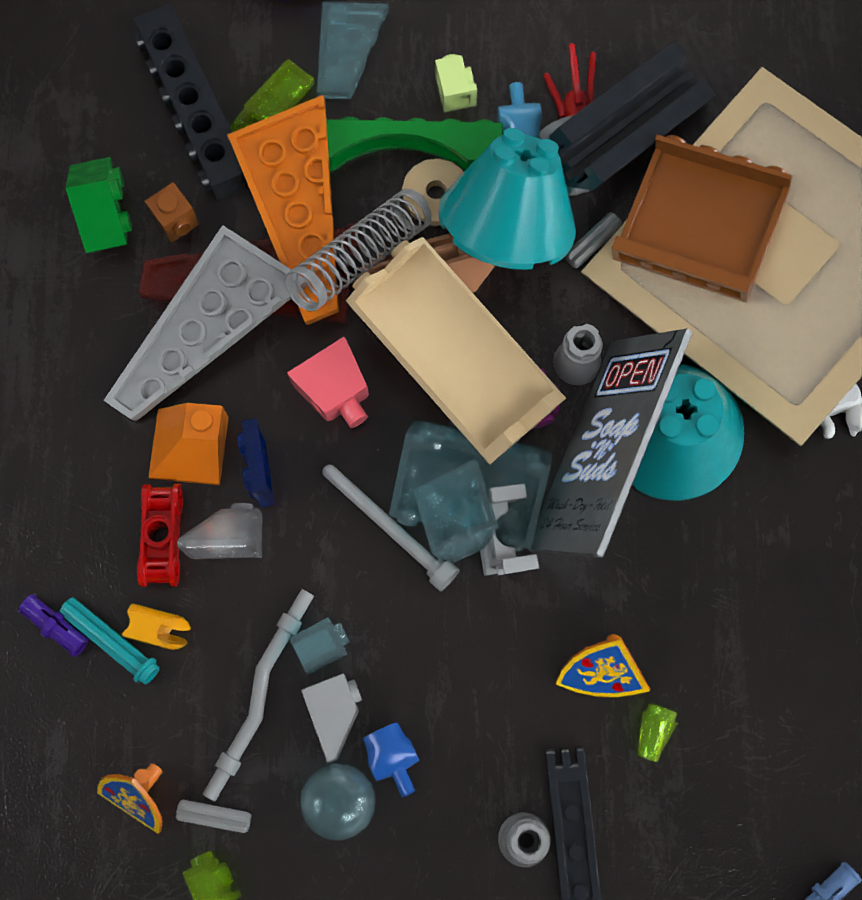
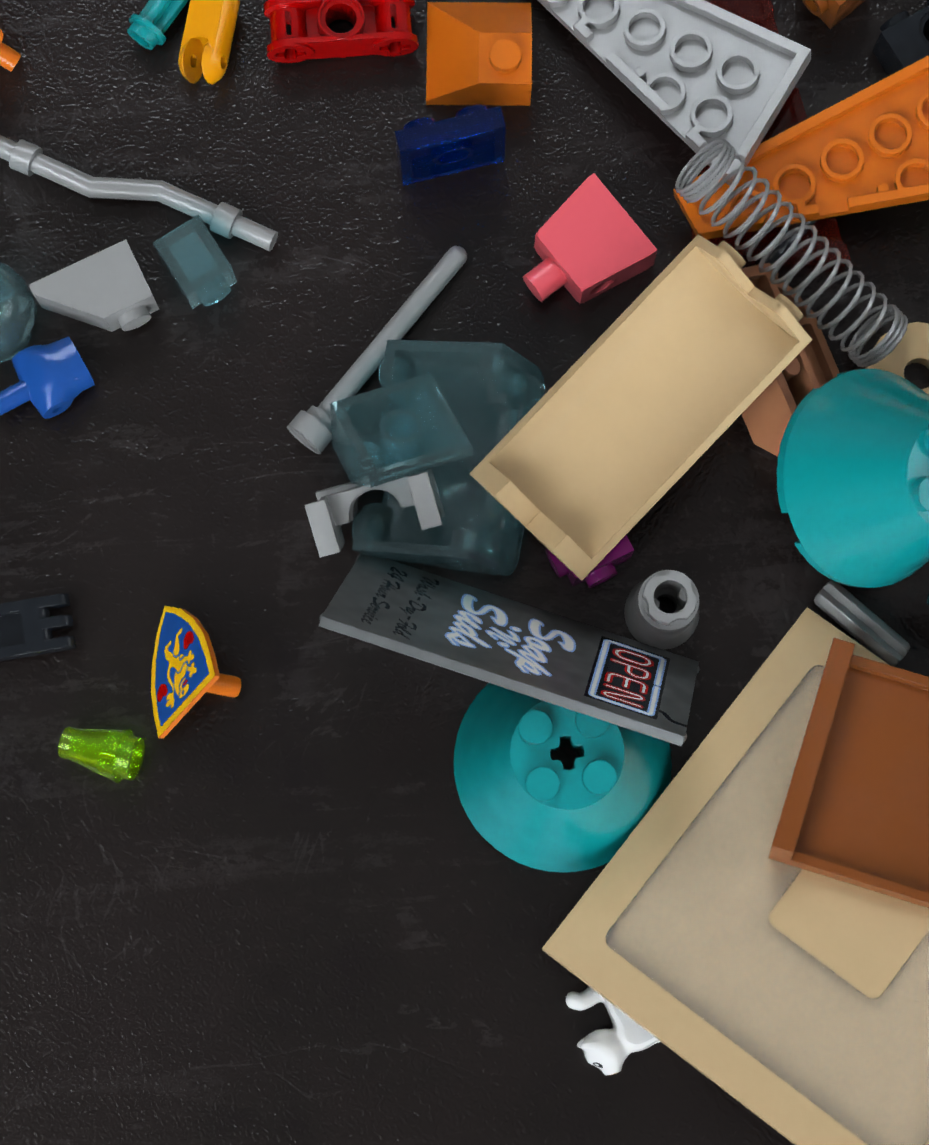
camera: 85 degrees right, 5 degrees up
(226, 535) = (346, 116): clear slope -> none

